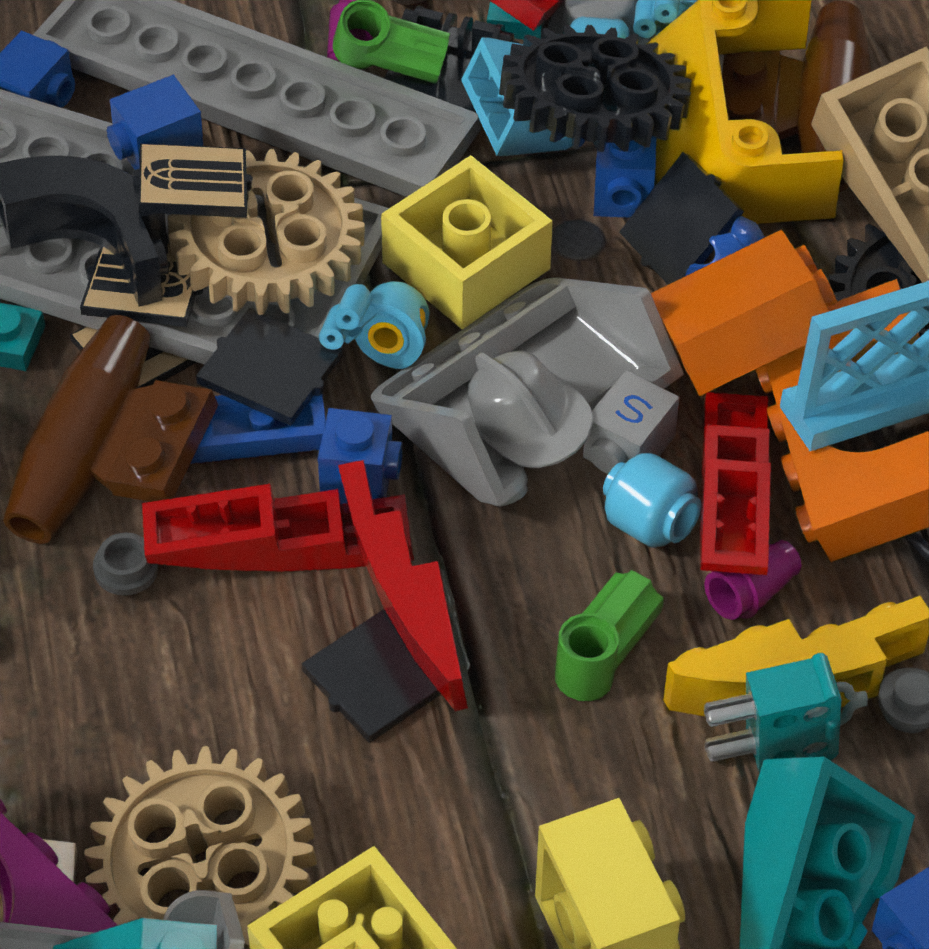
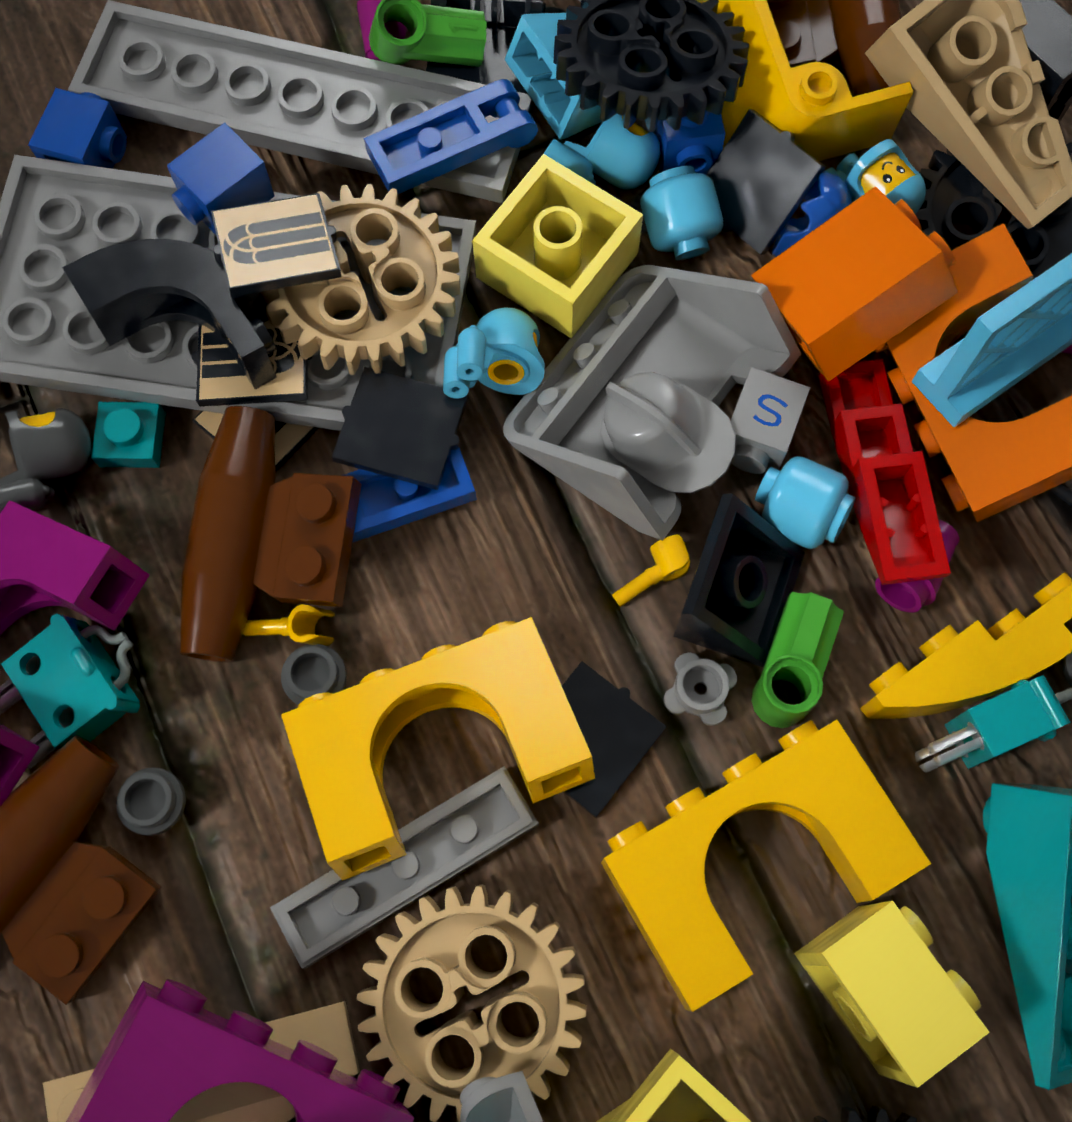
camera: 10 degrees left, 20 degrees up
(95, 761) = (437, 850): none -> light grey tile
(125, 517) = (298, 625): none -> yellow hand
(150, 609) = (346, 735): none -> yellow arch
(256, 532) = (448, 610): red slope -> none
(357, 437) = (513, 514): blue brick -> none
(388, 130) = (450, 136): none -> plate
(408, 593) = (610, 672): red slope -> none
(505, 537) = (671, 563): none -> yellow hand
(509, 630) = (717, 680): none -> light grey plate
(548, 175) = (614, 154): none -> medium azure piece
(560, 552) = (739, 584): none -> black slope
(582, 734) = (815, 782): none -> yellow arch
(600, 237) = (681, 212): none -> medium azure head
(808, 225) = (887, 170): none -> medium azure piece

